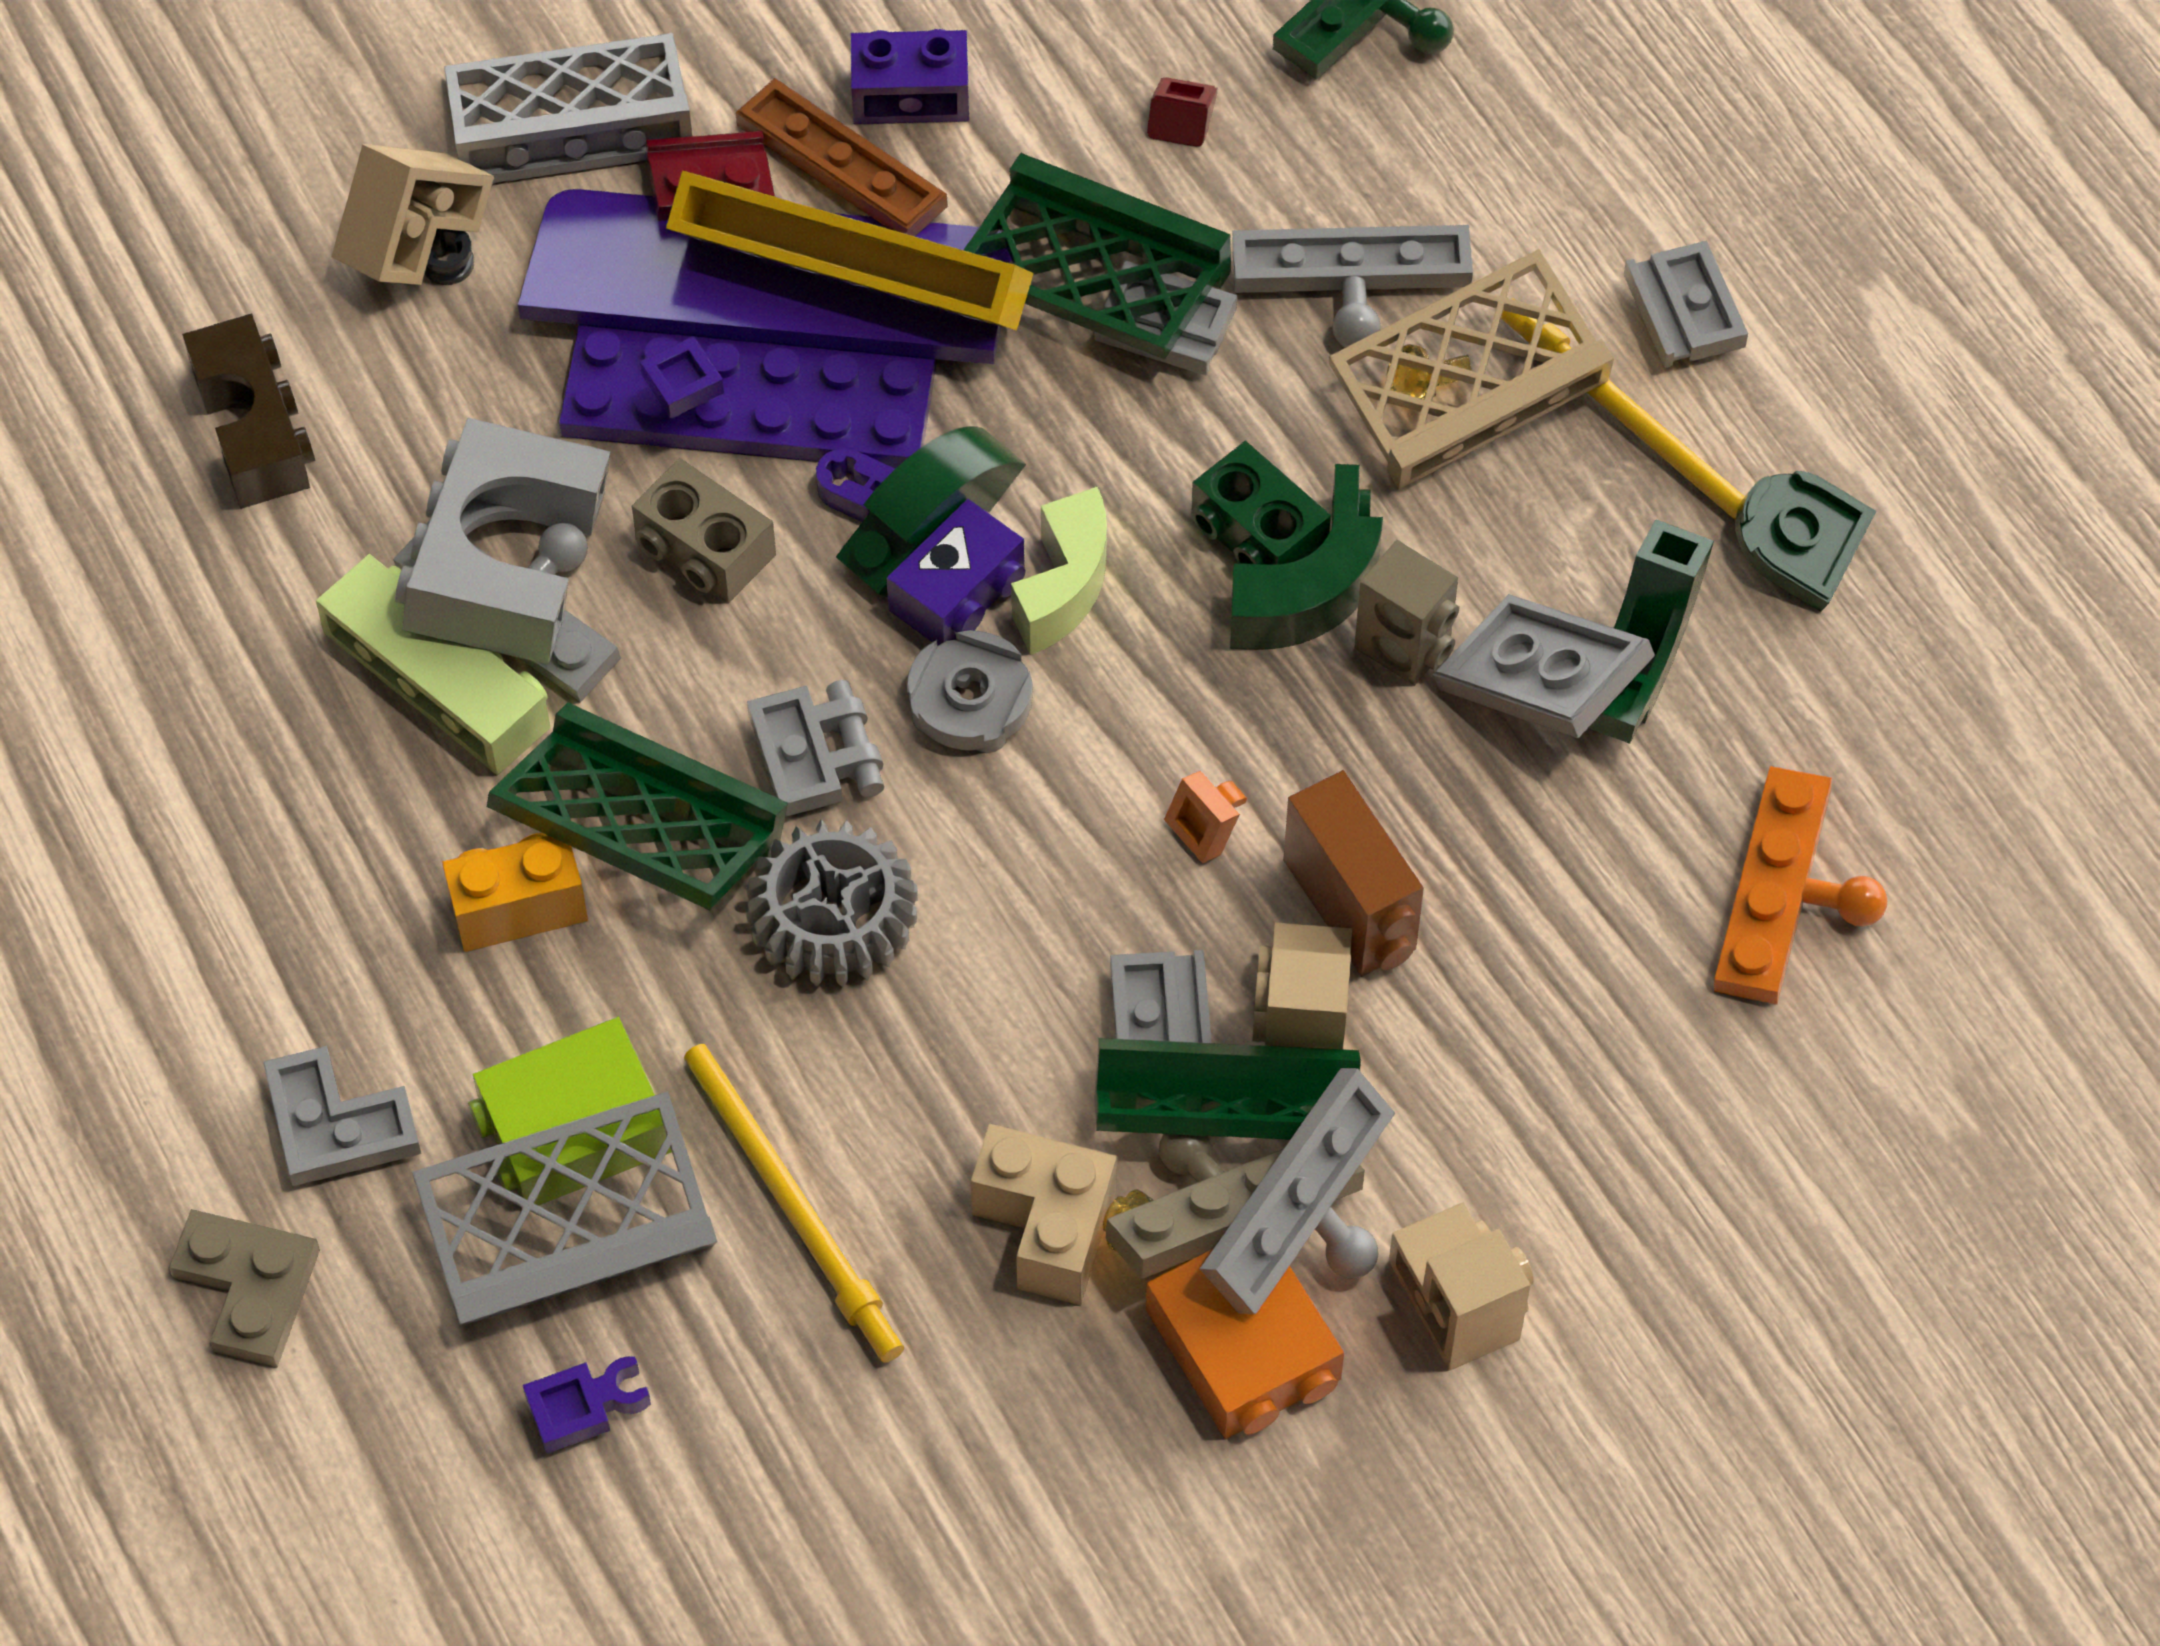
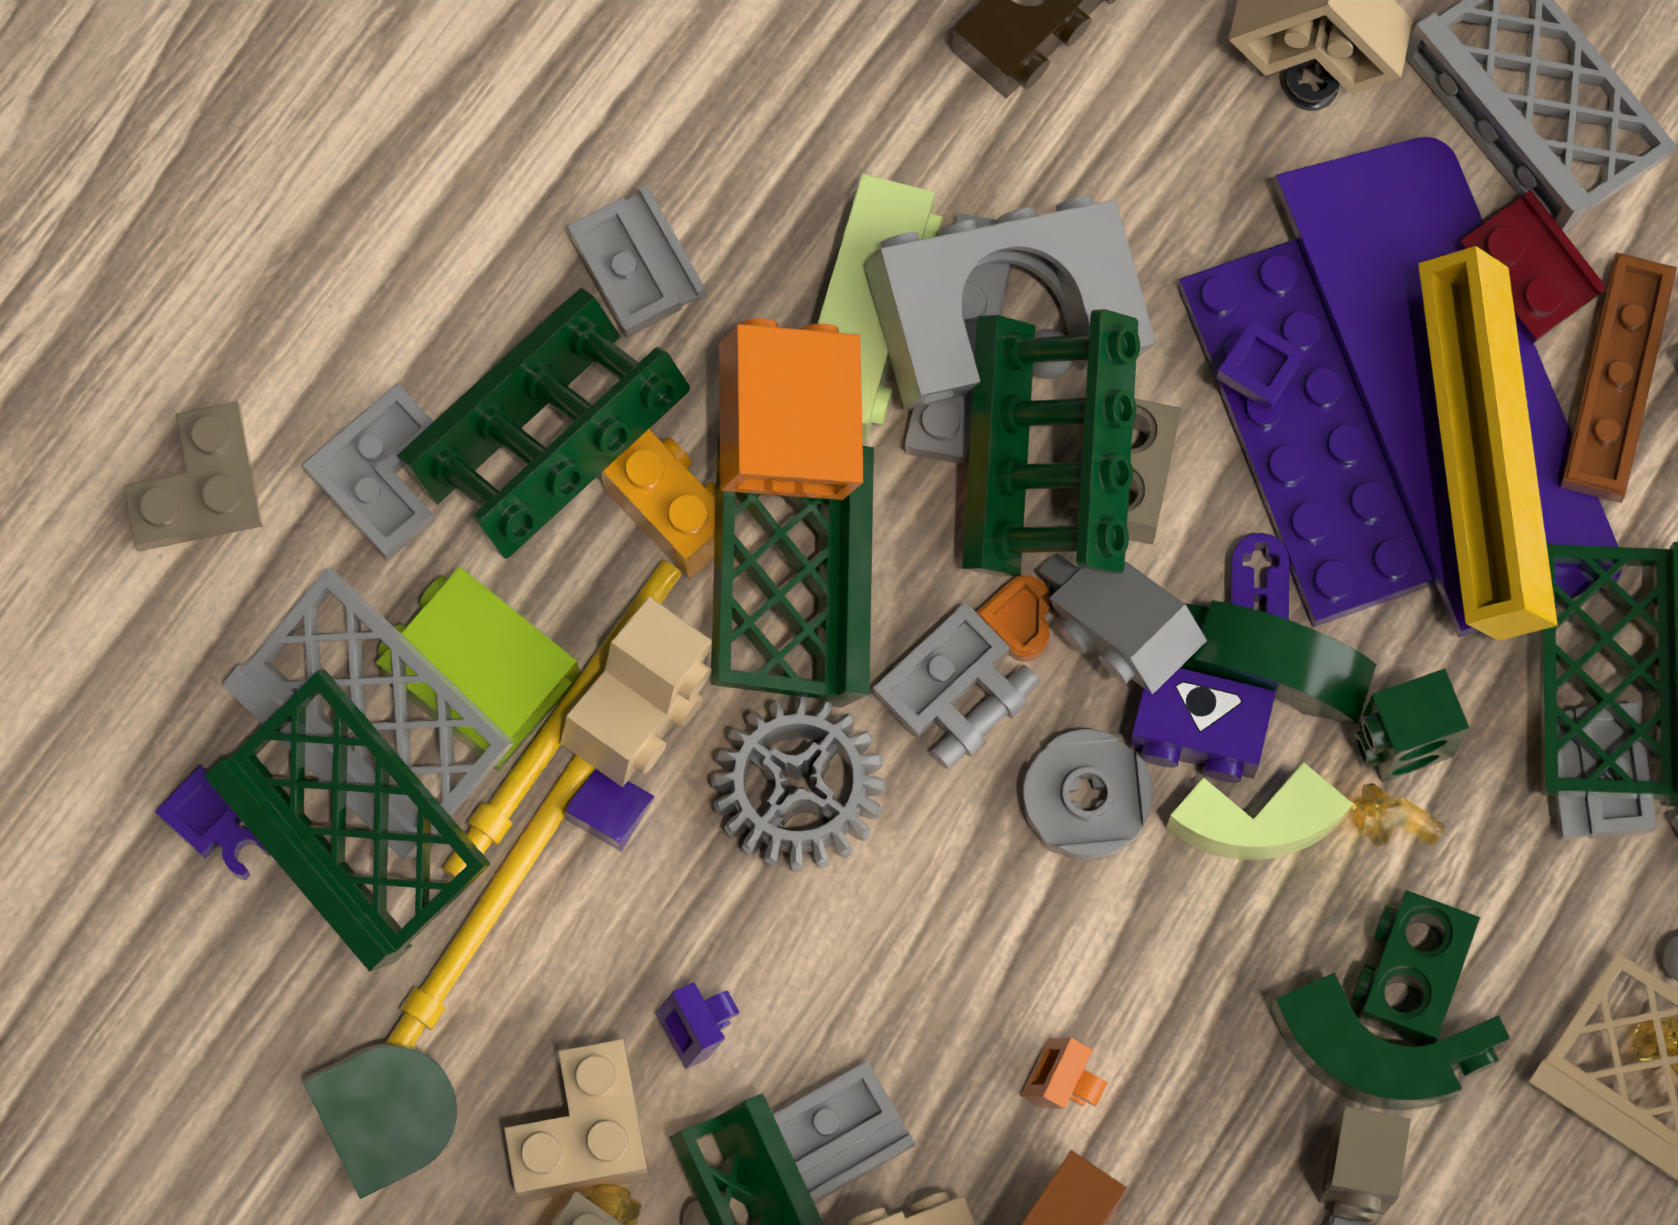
camera: 65 degrees right, 15 degrees up
(273, 824) = (636, 261): none -> light grey plate
(329, 945) = (516, 391): none -> dark green fence
(504, 728) = (790, 410): none -> orange brick
(656, 617) = (1000, 444): none -> dark green fence
(665, 1322) = (306, 854): none -> dark green fence
(680, 975) = (646, 688): none -> tan brick
(715, 1166) = (491, 820): none -> yellow bar
(763, 1070) = (608, 809): none -> dark purple slope
(776, 670) = (1019, 616): none -> orange tile
(834, 579) = (1125, 619): none -> light grey hinge
(940, 1370) = (384, 1112): none -> dark green tile
(1000, 1079) = (695, 1023): none -> dark purple tile
(1056, 414) = (1411, 726): none -> dark green brick
(1117, 480) = (1379, 815): none -> clear yellow plate

